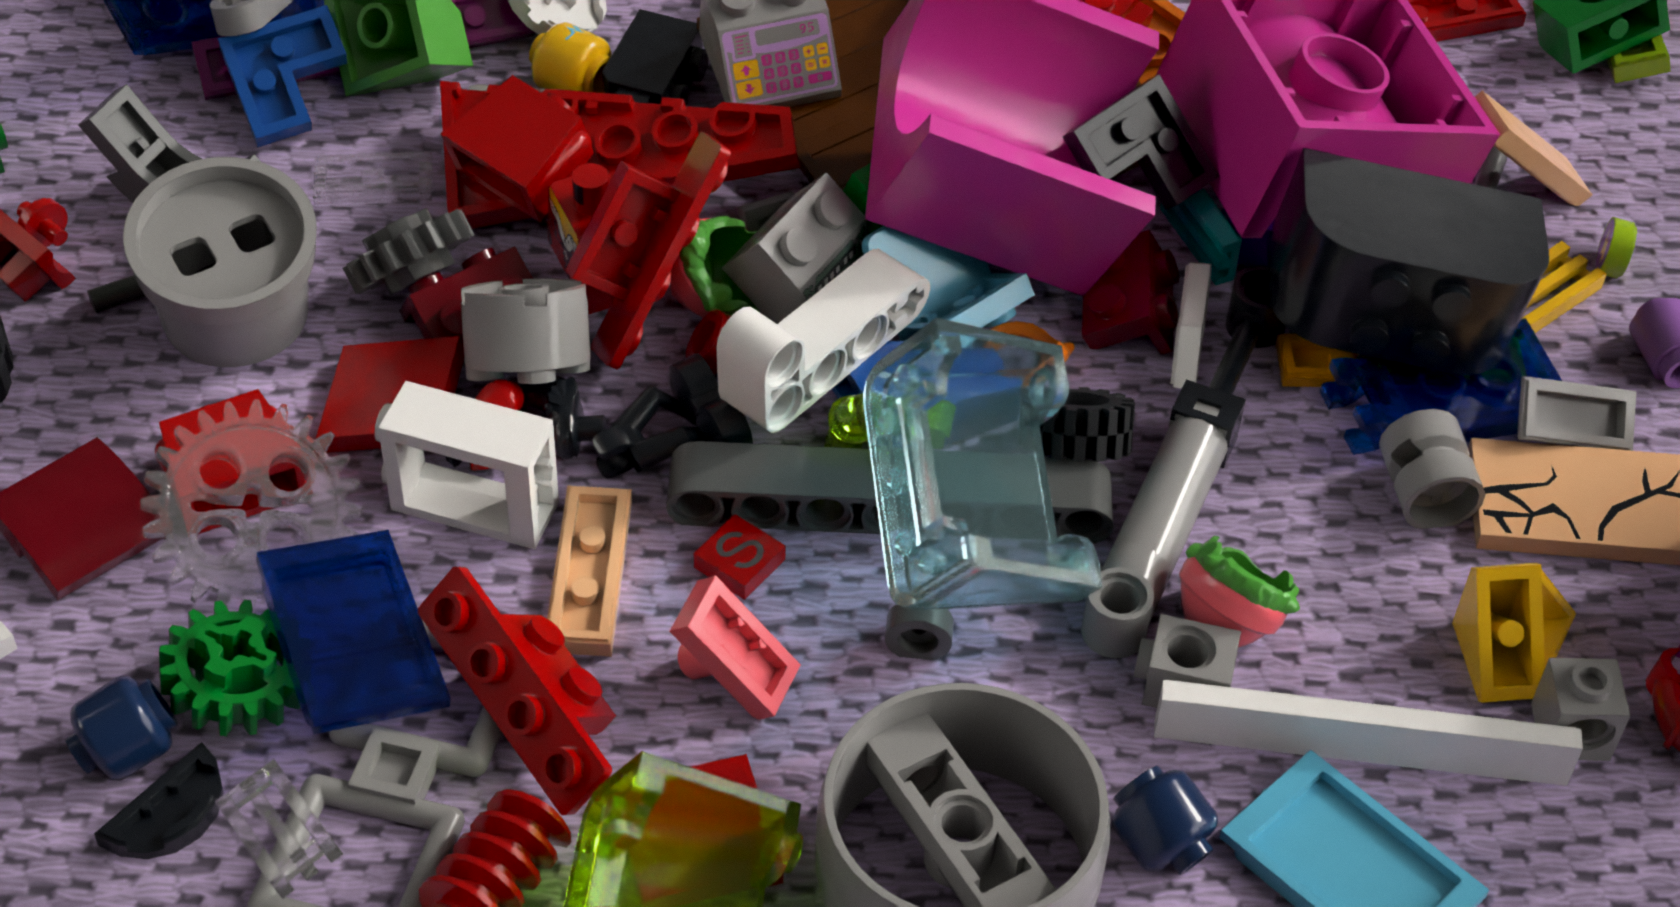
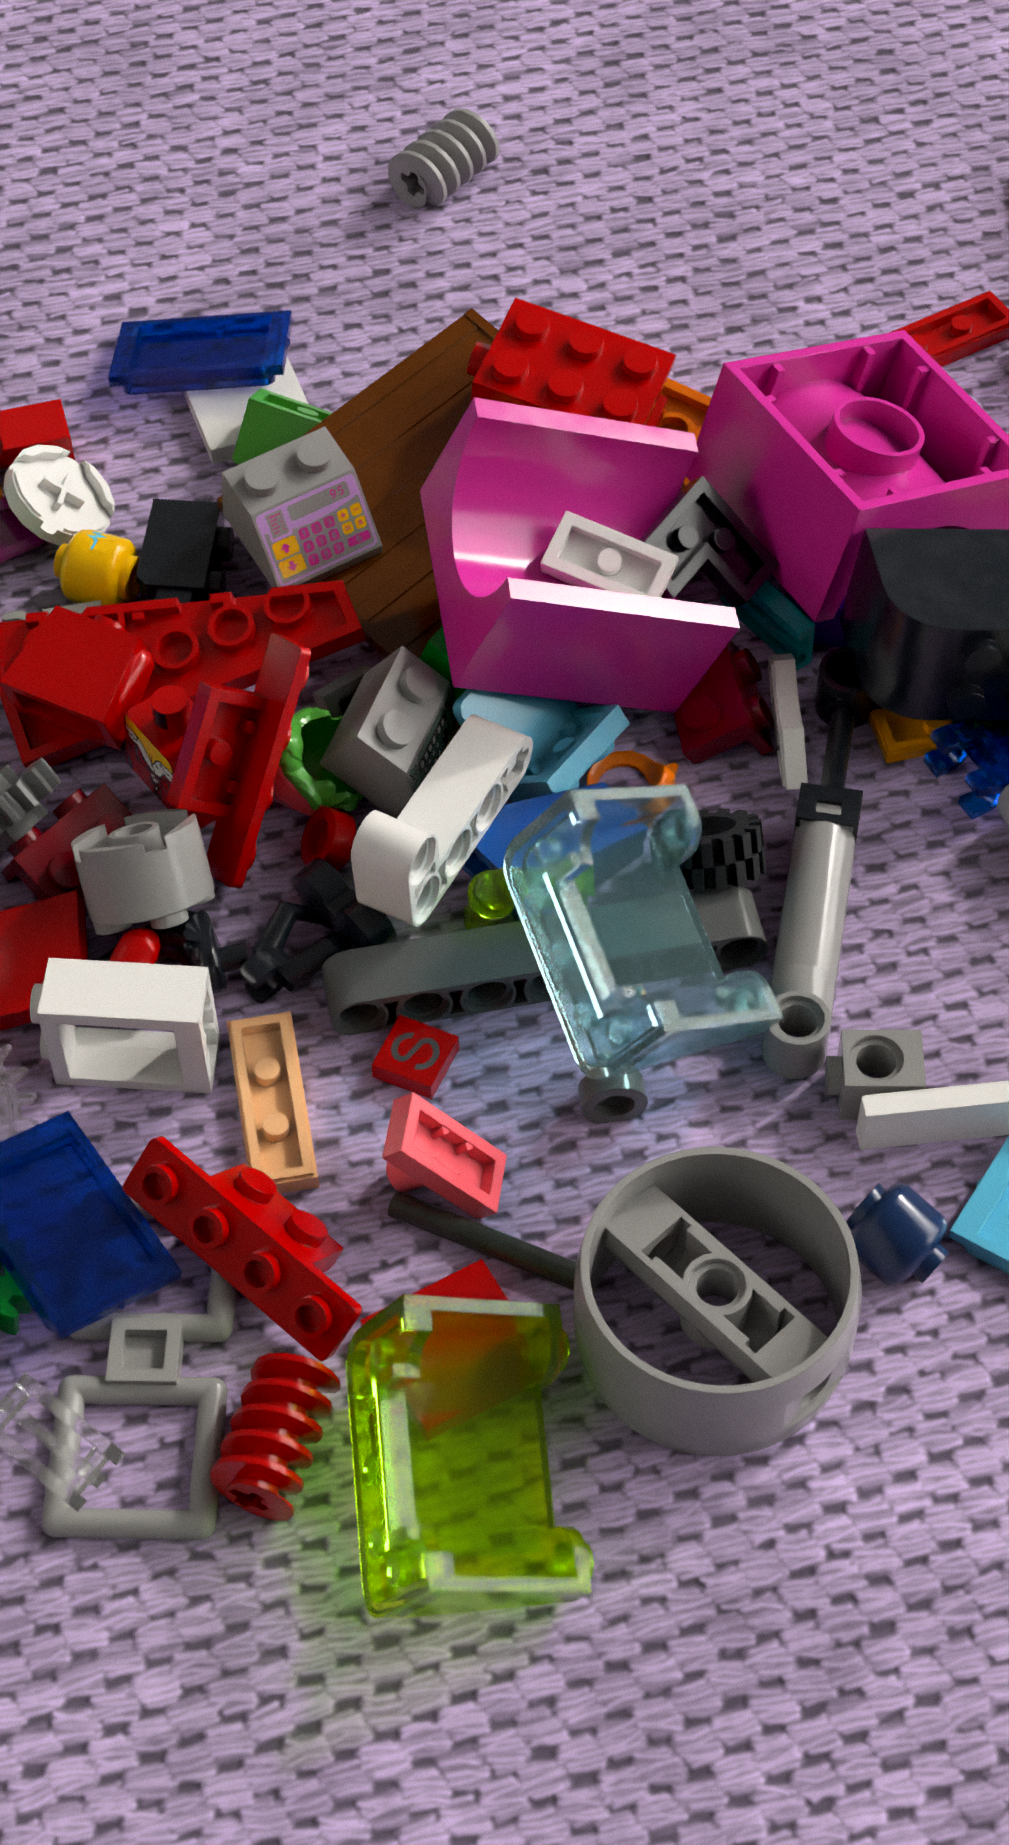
camera: 10 degrees left, 5 degrees up
(748, 734) = (483, 1239): none -> pearl dark grey bar
(1043, 126) = (606, 559): none -> white plate
(1233, 593) = (900, 992): hair -> none

